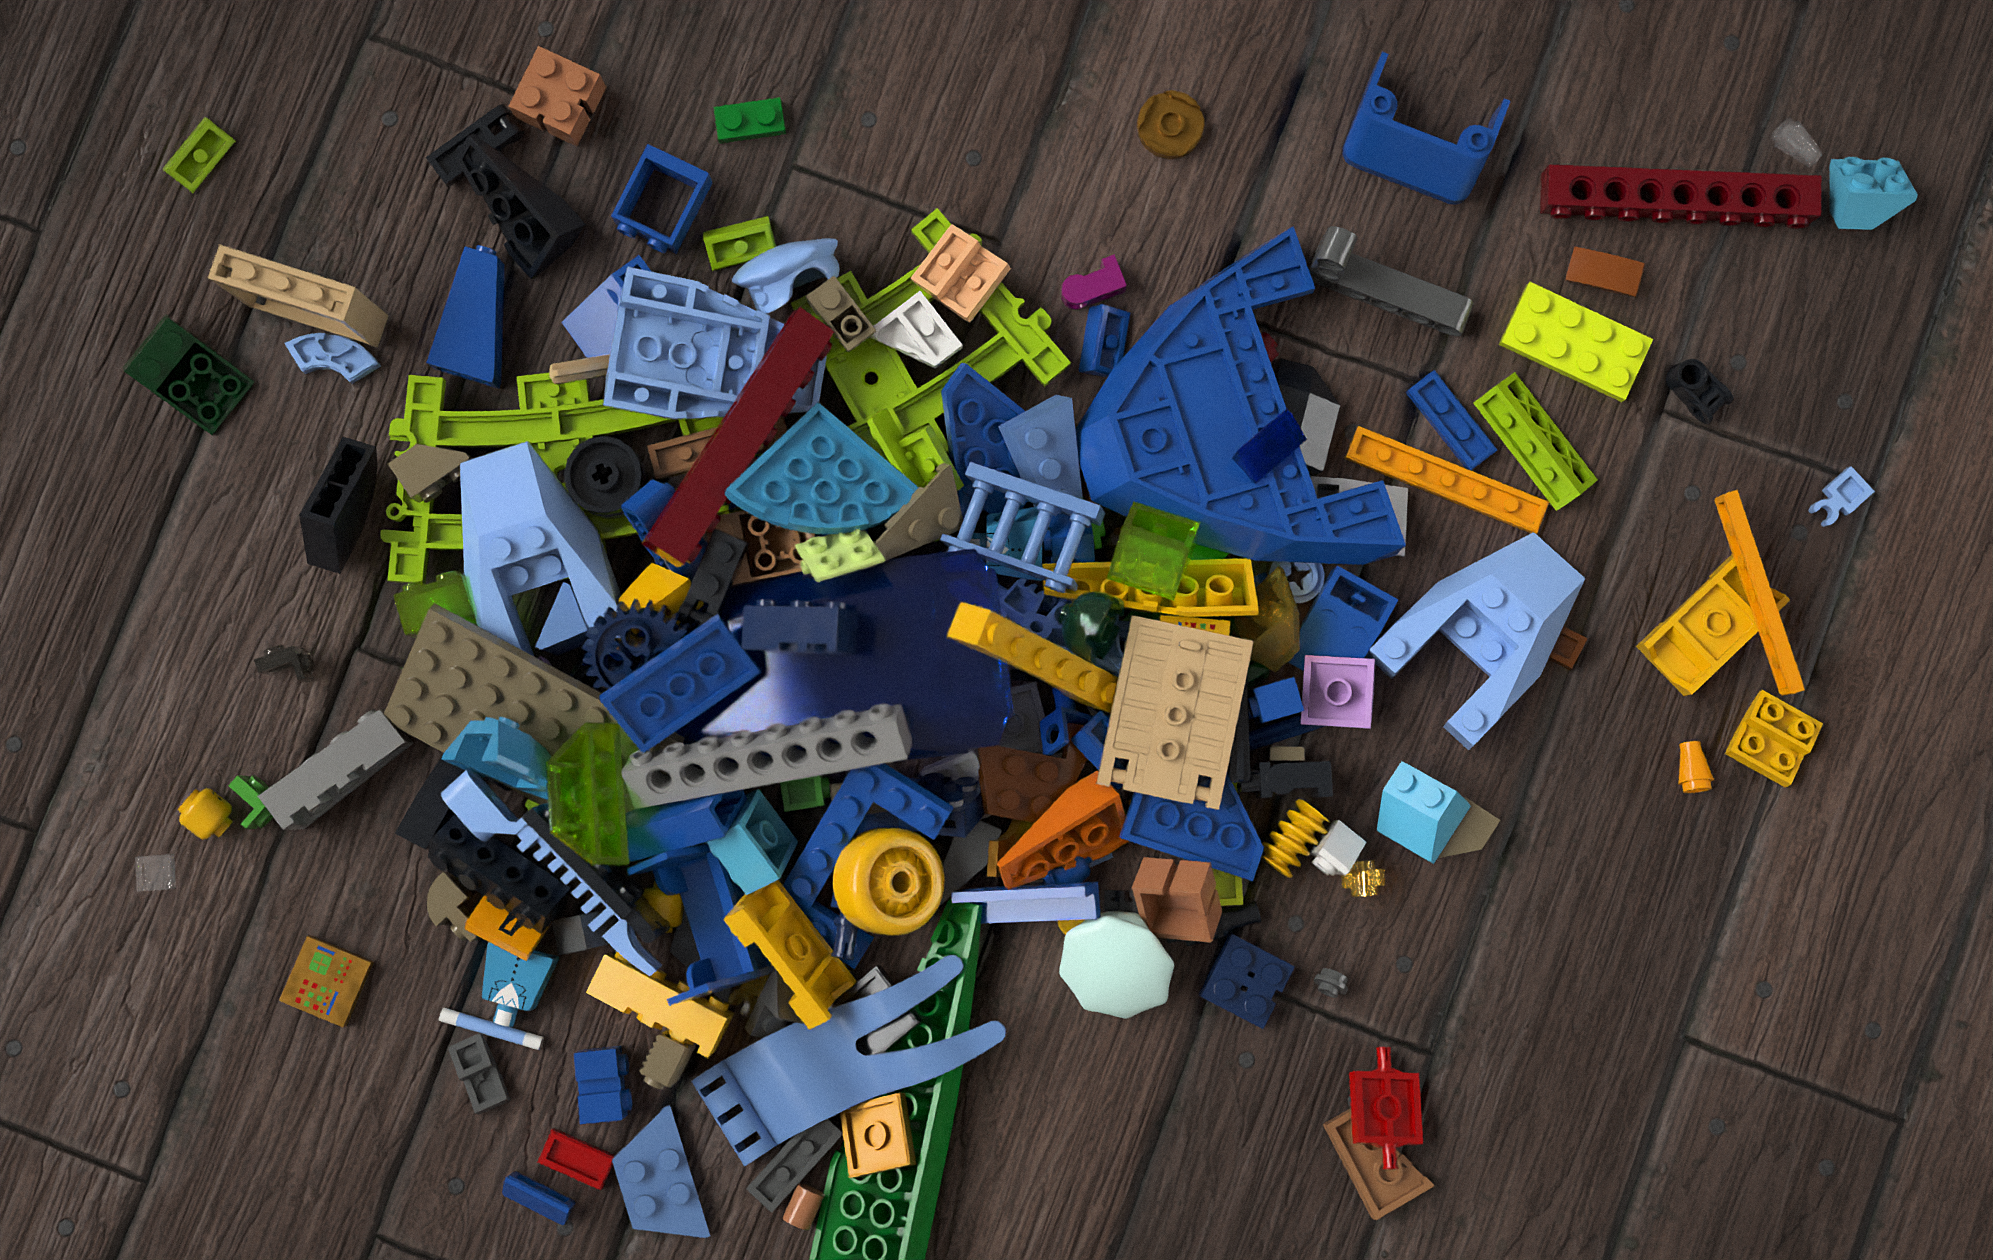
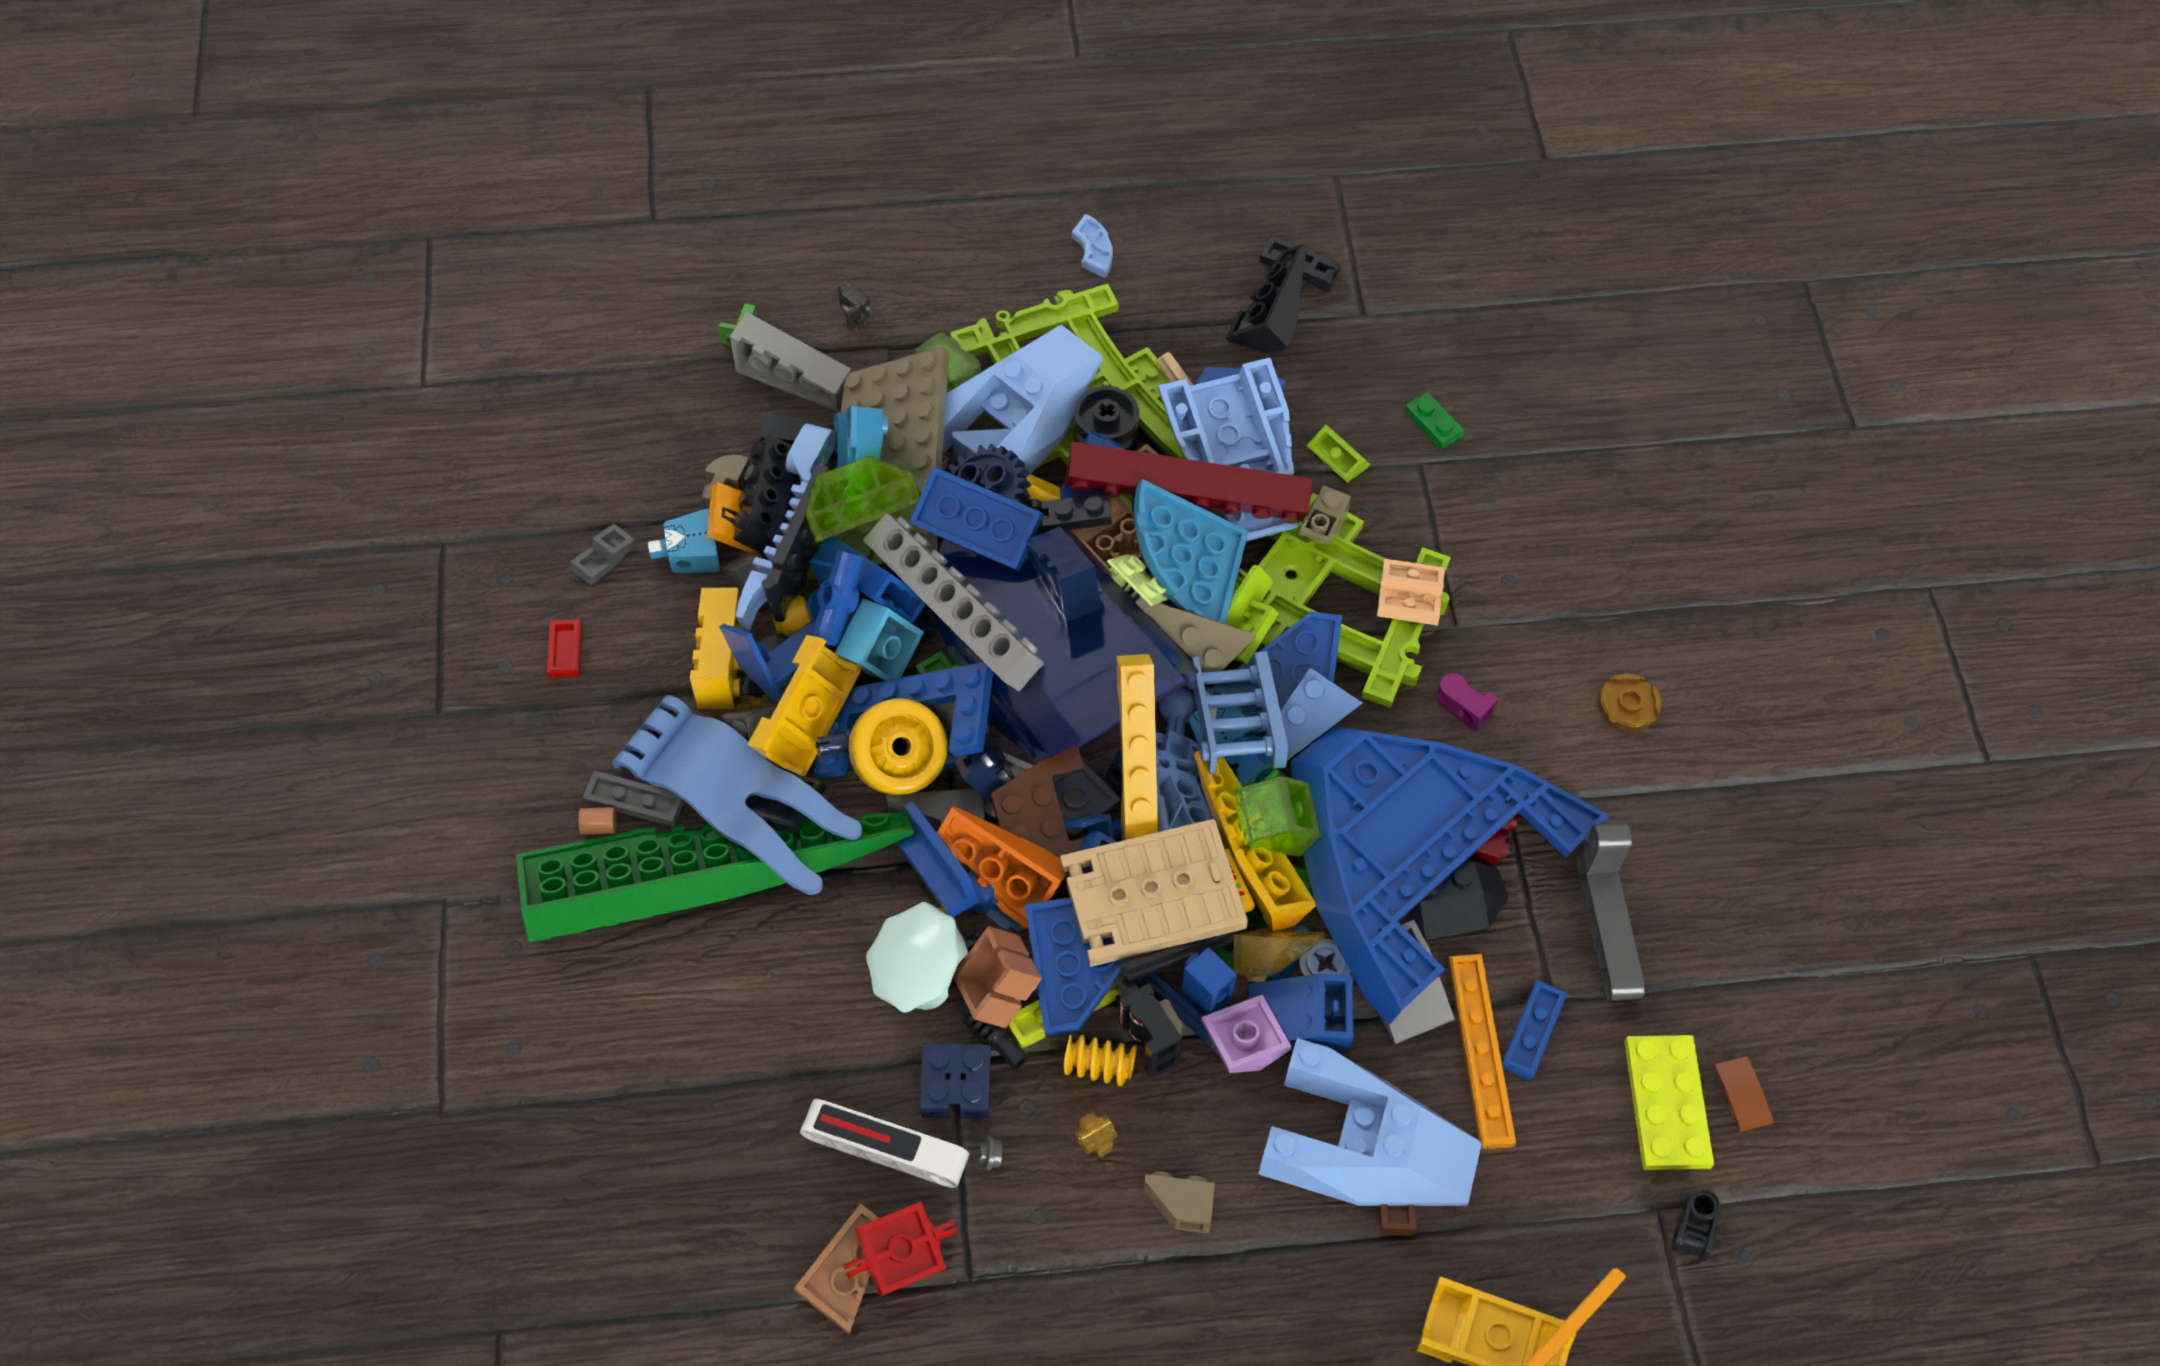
camera: 65 degrees right, 25 degrees down
(155, 872) = (657, 296): clear tile -> none
(188, 374) = (1029, 166): dark green slope -> none
(199, 154) = (1187, 115): lime slope -> none
(205, 813) = (717, 303): yellow head -> none
(298, 295) = (1128, 202): tan window -> none
(326, 981) = (627, 429): pearl gold tile -> none
(339, 505) = (987, 282): black brick -> none
(427, 469) = (1042, 313): dark tan slope -> none
(472, 320) = (1173, 311): blue slope -> none
(490, 1028) = (641, 548): light blue bar -> none
(538, 1197) = (521, 633): blue slope -> none
(554, 90) = (1367, 284): nougat piece -> none
(602, 1084) = (632, 635): blue brick -> none
(659, 1180) = (572, 709): medium blue wing -> none
(666, 1061) = (672, 663): dark tan brick -> none
(676, 168) = (1337, 368): blue window -> none
(698, 868) = (838, 596): none -> blue piece
(780, 269) = (1339, 473): light blue piece -> none
(877, 1136) = (682, 842): tile -> none
(918, 332) = (1345, 580): white wing -> none
(1089, 624) = (1189, 794): clear green cylinder -> none
(1103, 340) = (1436, 728): blue slope -> none
(1270, 446) = (1417, 859): clear blue slope -> none
(1275, 1075) = (885, 1143): none -> beam
(1337, 849) = (1109, 1095): white slope -> none
(1412, 156) = (1731, 895): blue windscreen -> none
(1420, 812) = (1181, 1149): medium azure slope -> none
(1533, 443) = (1555, 1101): lime fence -> none
(1796, 142) = (1969, 1207): clear cone -> none
(1799, 191) = (1871, 1136): dark red brick -> none
(1867, 191) = (1971, 1290): medium azure slope -> none

